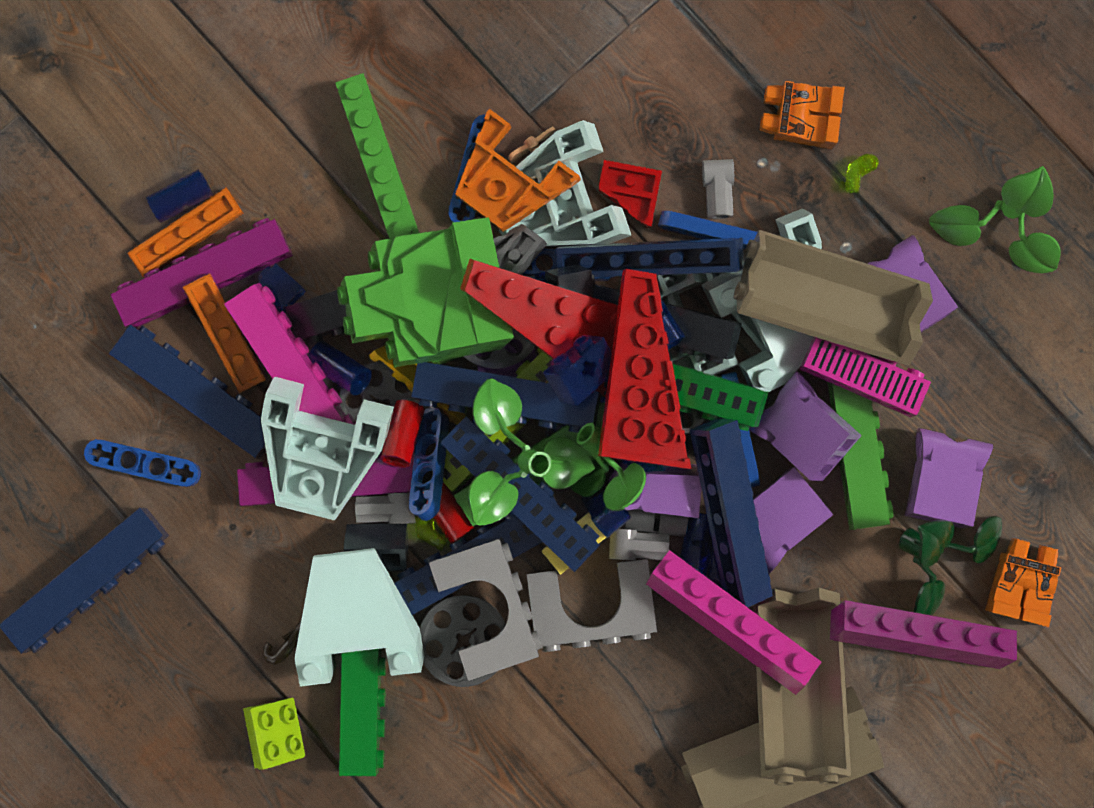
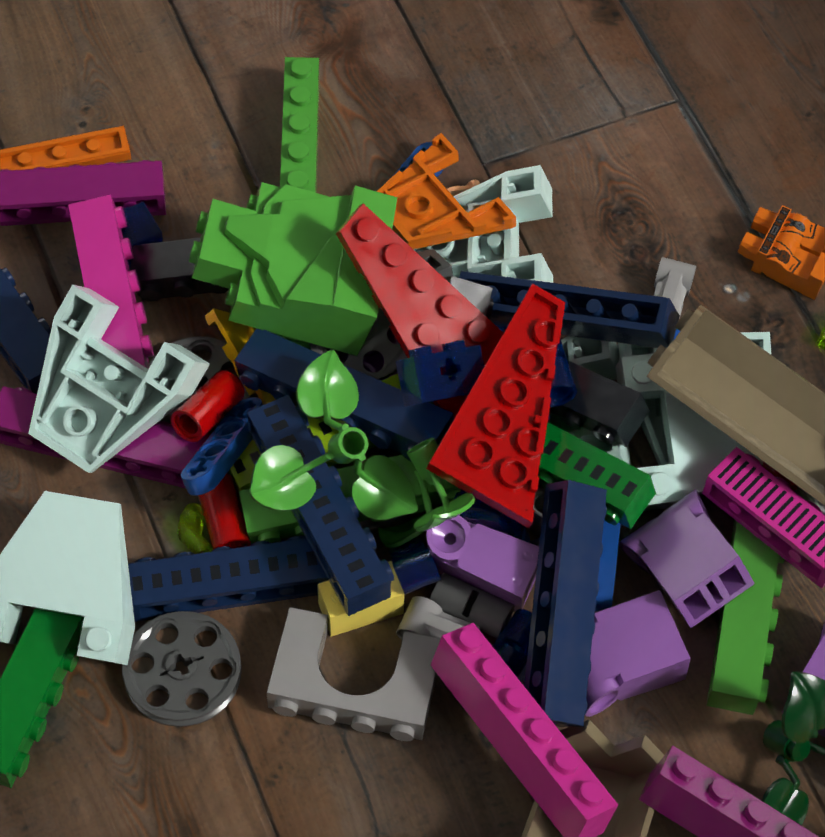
camera: 15 degrees right, 25 degrees down
(185, 191) = (70, 116): clear blue pin -> none
(224, 333) = (53, 245): orange tile -> none
(340, 368) = (168, 324): clear blue pin -> none
(387, 539) = (142, 521): black brick -> none
(388, 509) = (161, 493): light grey piece -> none
(515, 641) = (241, 668): light grey arch -> none
(631, 188) = (571, 257): red wing -> none

